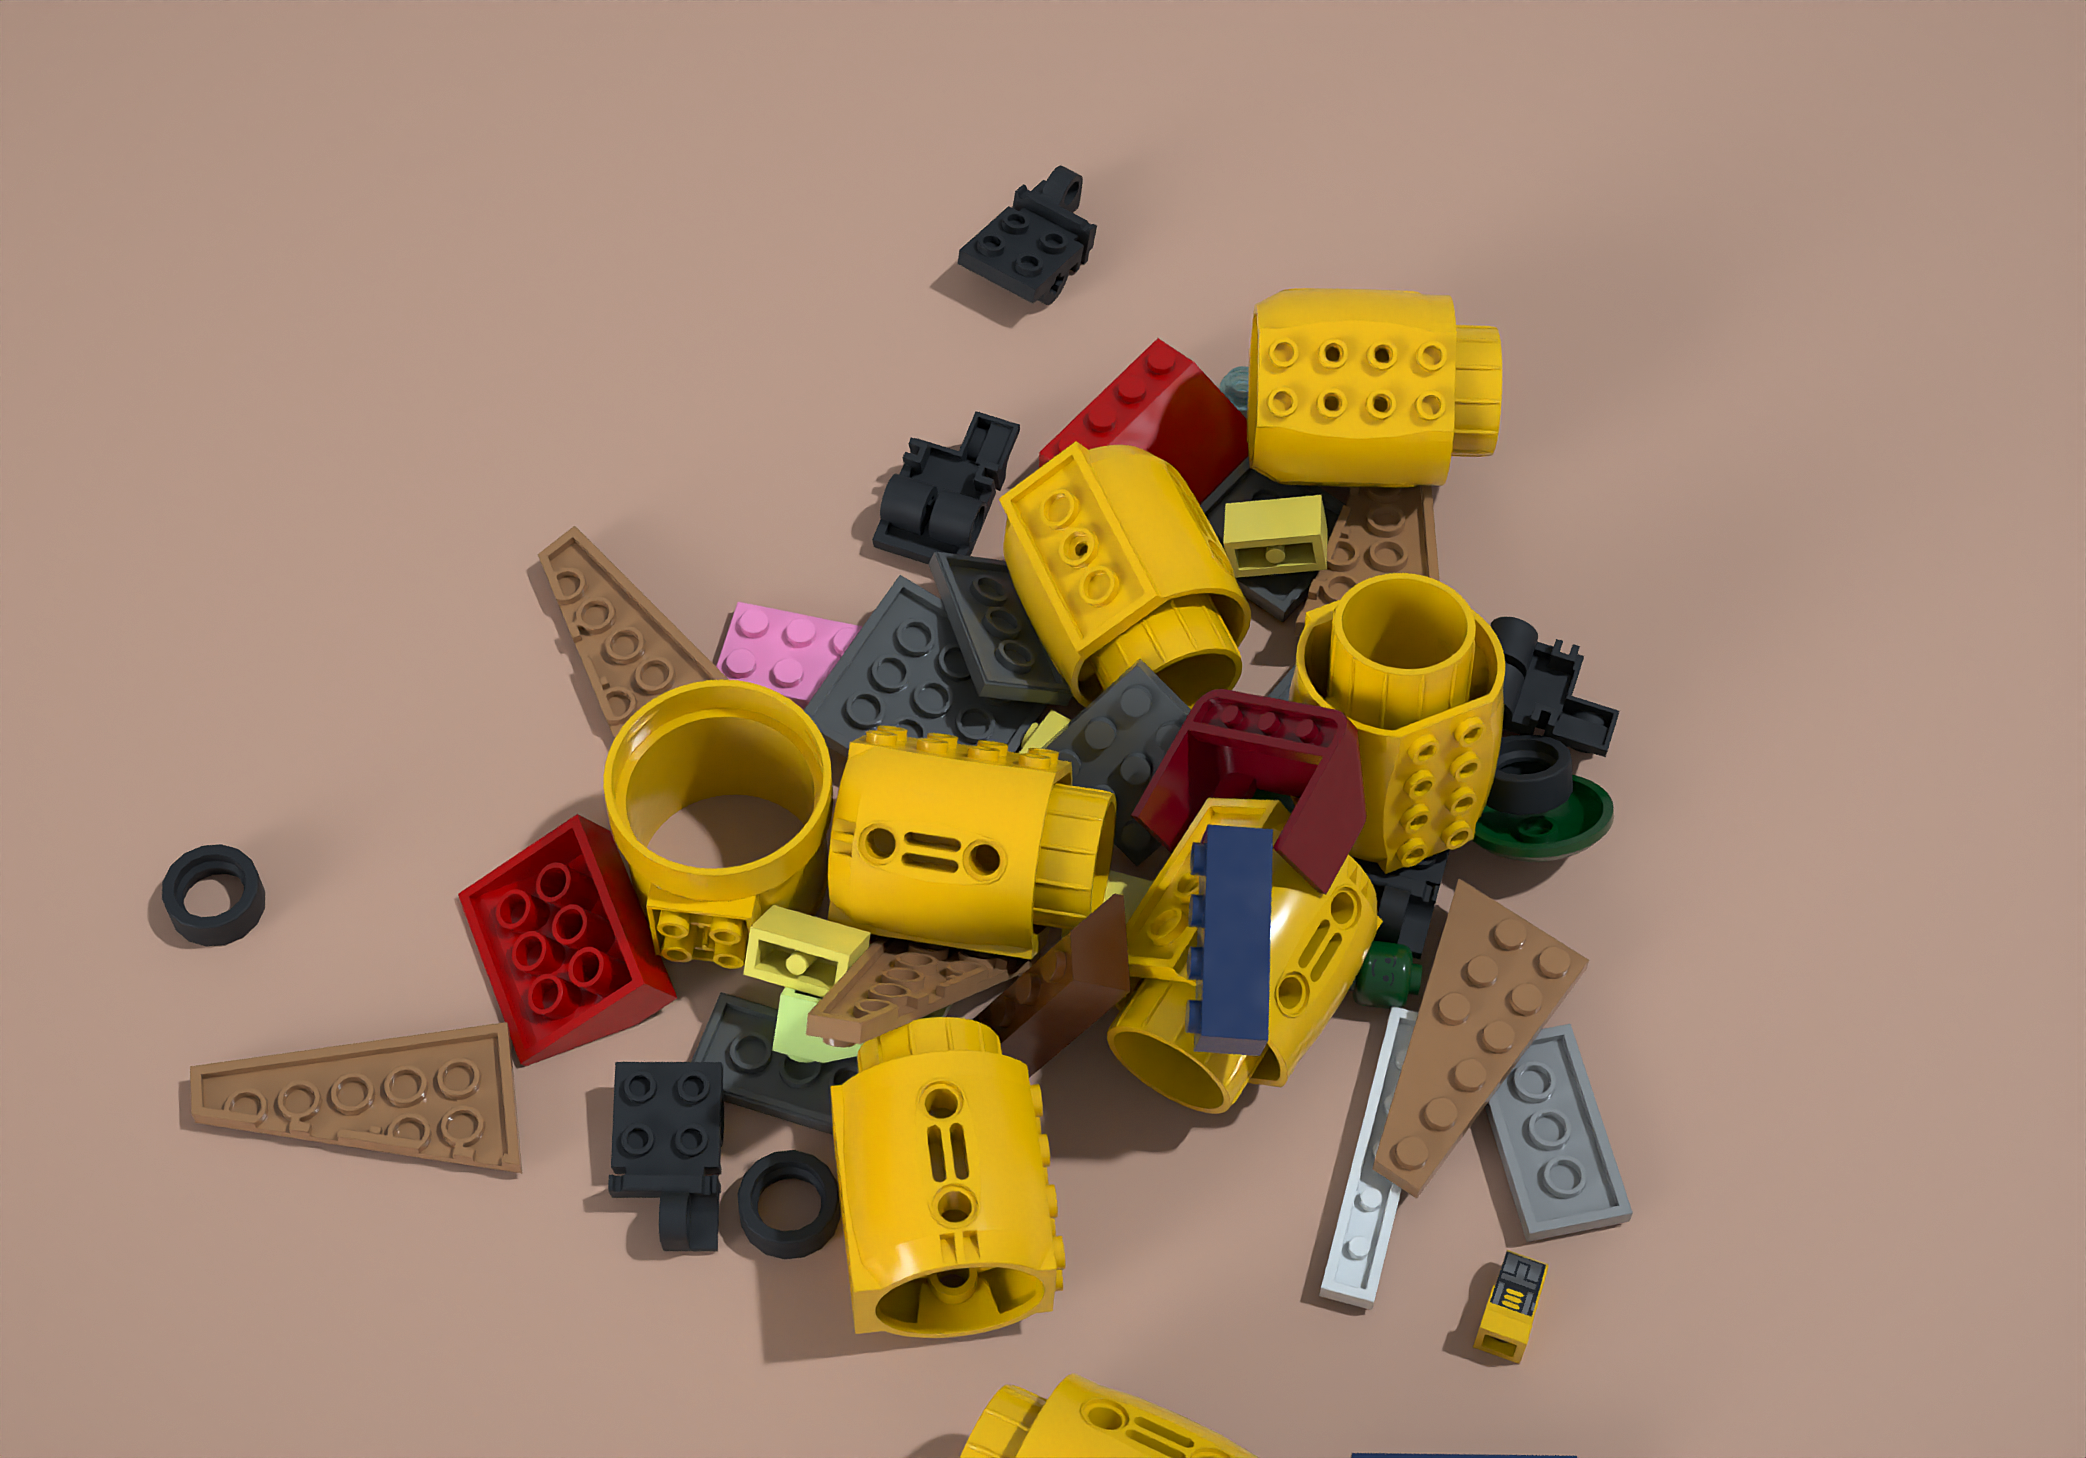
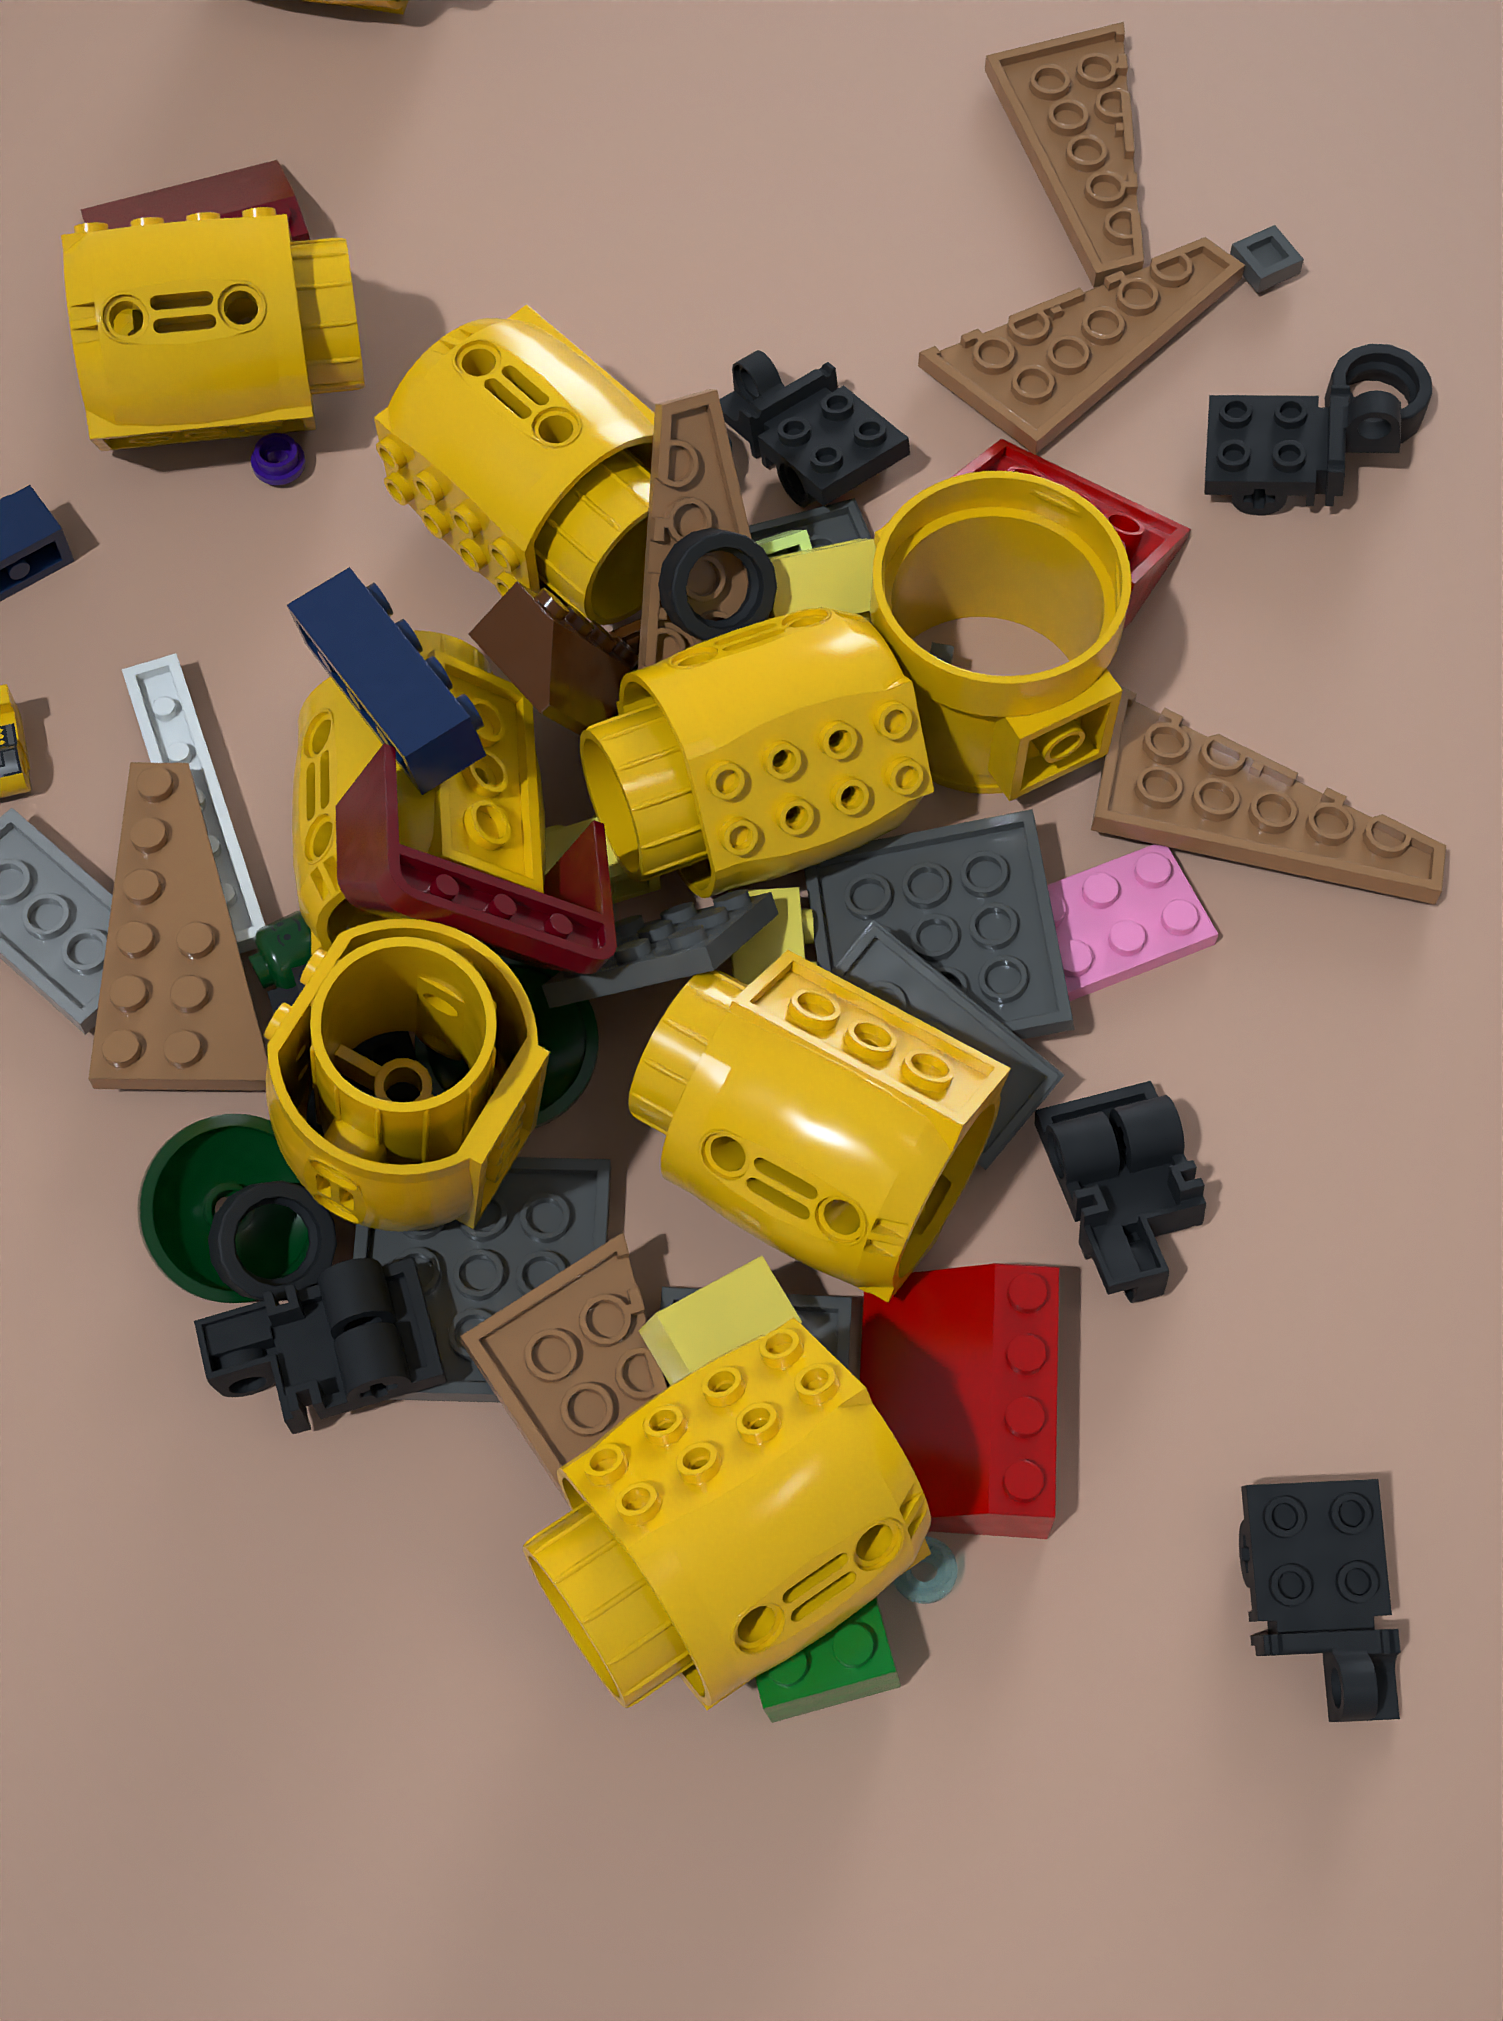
camera: 145 degrees right, 5 degrees up
(161, 1070) = (1267, 258): none -> dark grey plate
(170, 1312) = (1077, 130): none -> medium nougat wing
(329, 878) = (1290, 446): none -> black plate
(902, 950) = (682, 558): none -> black tyre

